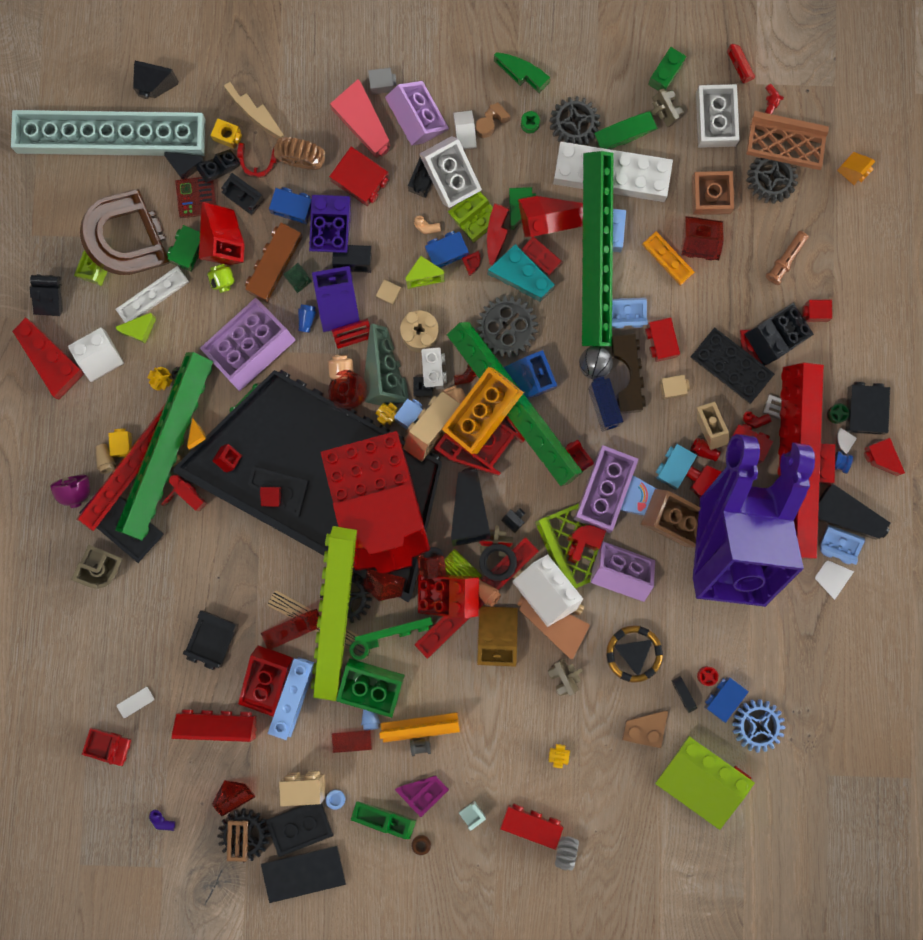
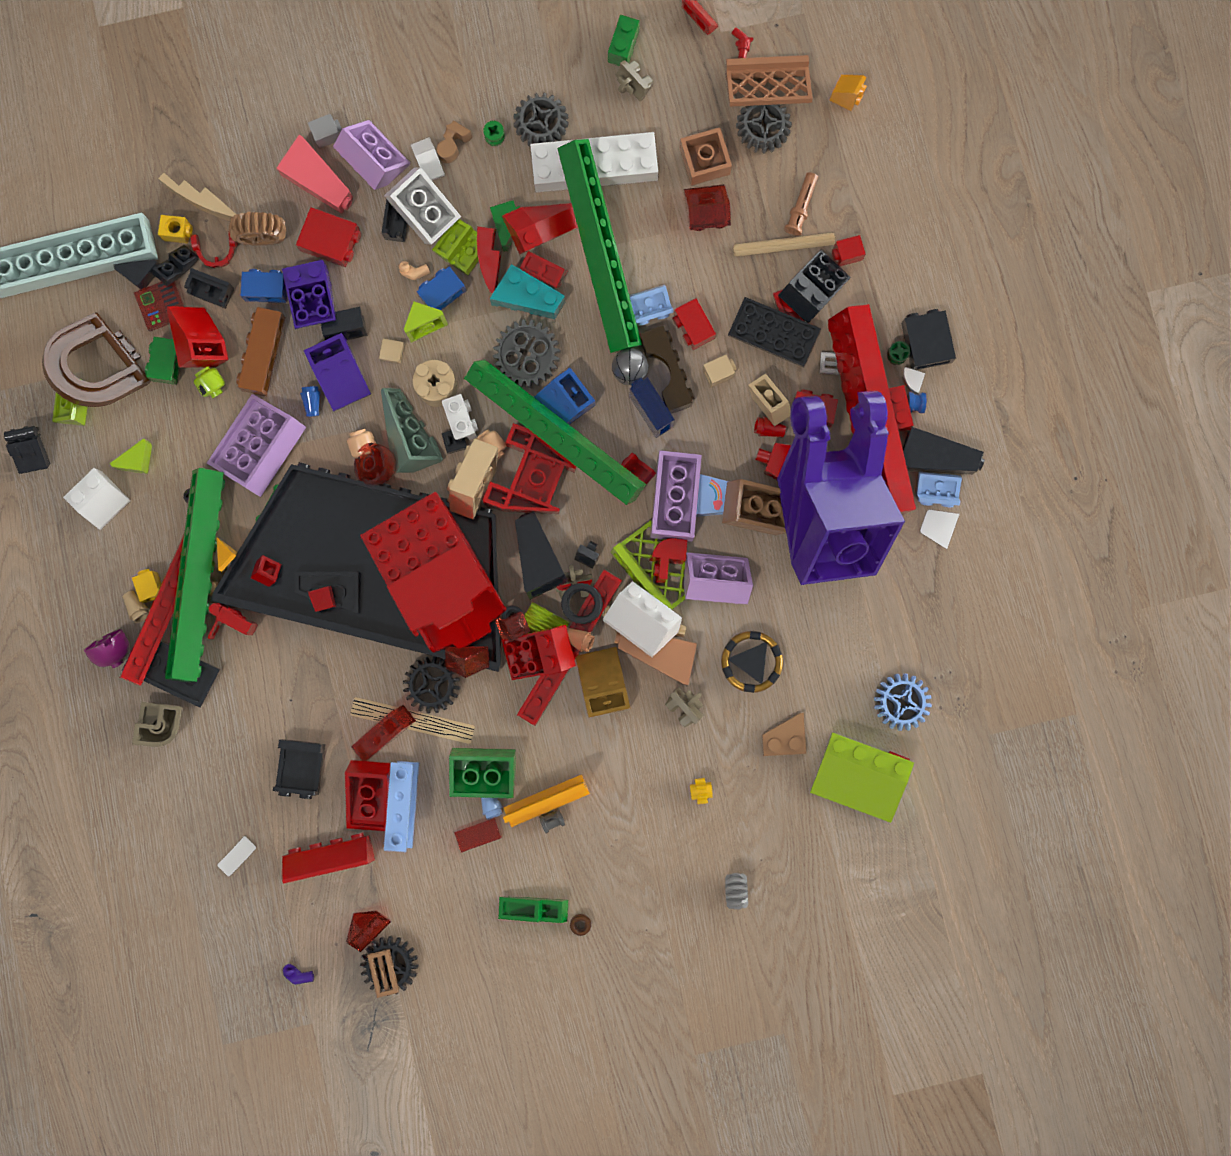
camera: 15 degrees left, 0 degrees up
(49, 360) = (53, 521): red wedge -> none
(106, 746) = (217, 911): red piece -> none
(152, 80) = (81, 192): black slope -> none
(152, 295) = (142, 419): white tile -> none
(159, 378) = (172, 506): yellow gear -> none
(297, 278) = (290, 361): clear green brick -> none
(299, 828) = (446, 941): black tile -> none
(302, 789) = (438, 899): tan brick -> none
(303, 874) = (463, 989): black tile -> none
(334, 612) = (419, 700): lime brick -> none
(335, 799) = (476, 901): light blue tile -> none
(351, 334) = (359, 398): red tile -> none
(371, 639) = (469, 722): green hinge -> none
(386, 413) = (423, 479): yellow gear -> none
(408, 413) = (444, 471): light blue brick -> none
(422, 793) = (567, 870): magenta wing -> none
(468, 376) = (499, 418): clear red arm -> none
(472, 262) = (471, 296): red tile -> none
(472, 815) = (626, 878): light aqua panel -> none
(482, 410) = (522, 446): light orange brick -> none
(522, 71) = (471, 82): green slope -> none
(532, 826) = (692, 872): red brick -> none
(618, 229) = (616, 220): light blue brick -> none
(626, 131) = (597, 115): green slope -> none
(668, 258) = (677, 238): light orange tile -> none
(676, 466) = (743, 453): medium azure brick -> none
(684, 694) = (815, 690): black beam -> none
(710, 678) = (839, 665): red wheel -> none
(717, 116) = (688, 74): white brick -> none
(725, 699) = (860, 683): blue brick -> none
(754, 421) = (814, 384): red arm -> none
(761, 289) = (784, 244): none -> tan axle
(884, 457) = (959, 385): red slope -> none

